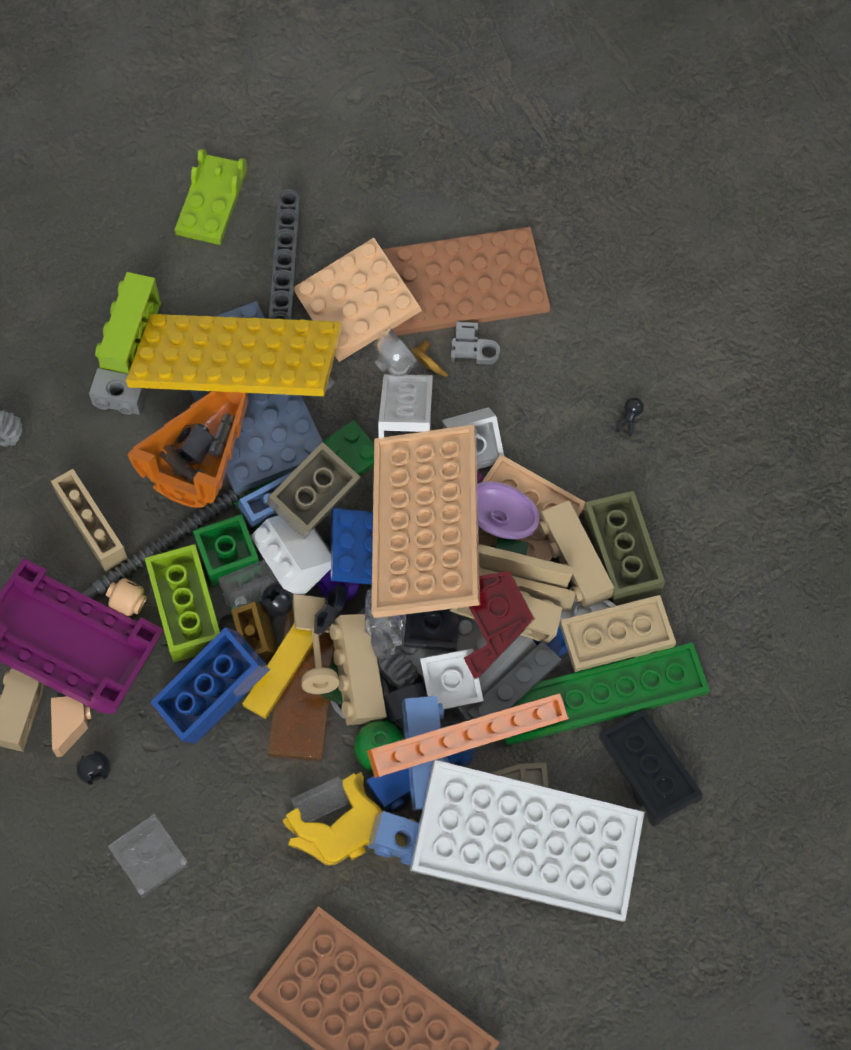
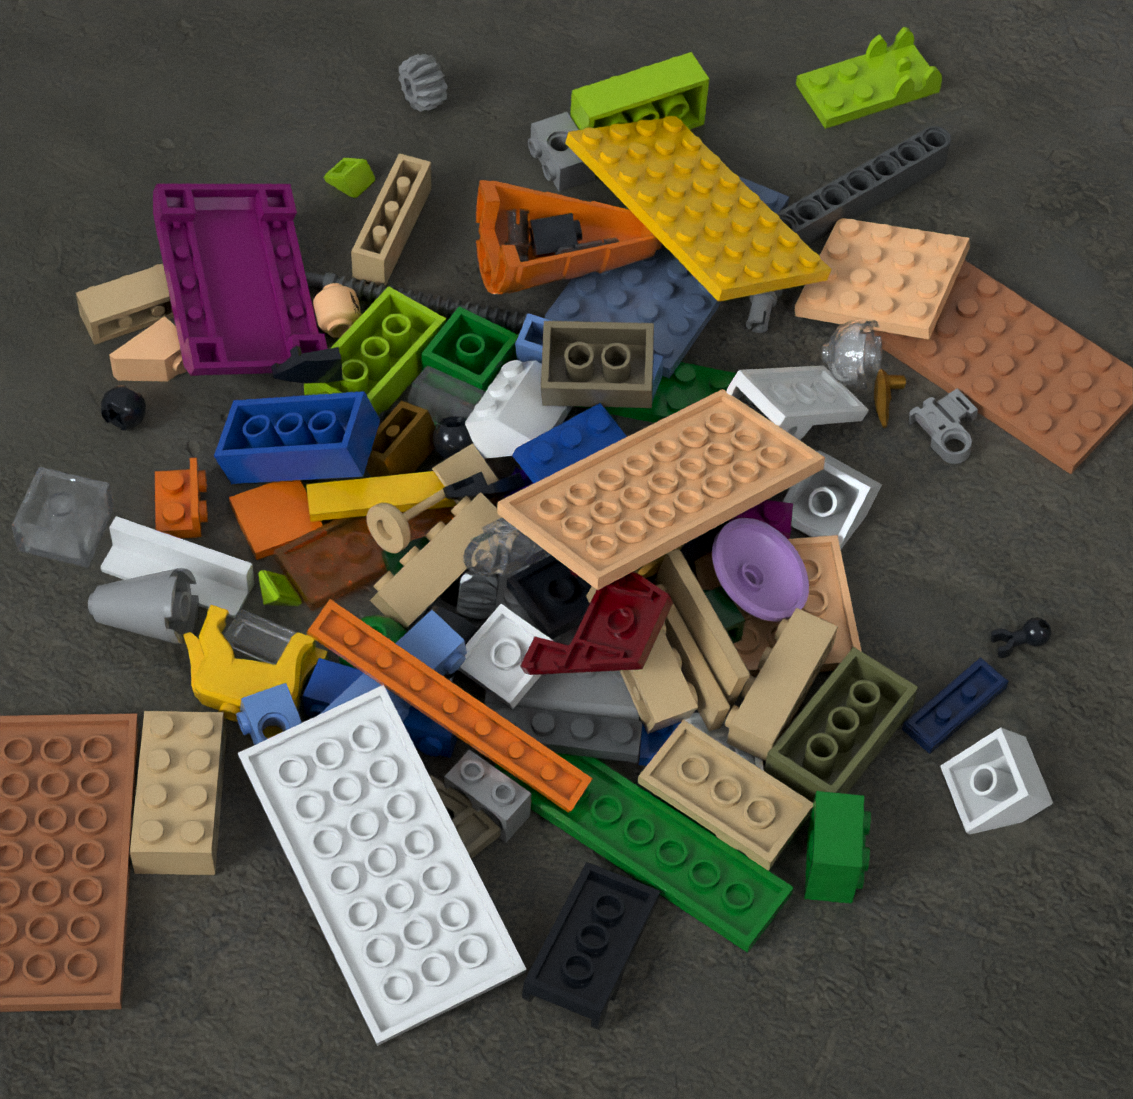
camera: 50 degrees right, 10 degrees down
(27, 518) = (350, 176): none -> lime slope
(174, 642) = (310, 367): none -> black slope
(186, 781) = (178, 501): none -> orange bracket
(232, 816) = (145, 551): none -> white panel
(241, 736) = (273, 515): none -> orange tile
(249, 851) = (149, 605): none -> light grey cone
(294, 770) = (277, 590): none -> lime slope
(389, 918) = (178, 793): none -> tan brick
(521, 751) = (492, 792): none -> light grey brick
(644, 478) = (955, 705): none -> dark blue tile
(691, 604) = (836, 847): none -> green brick
(706, 498) = (996, 782): none -> white slope

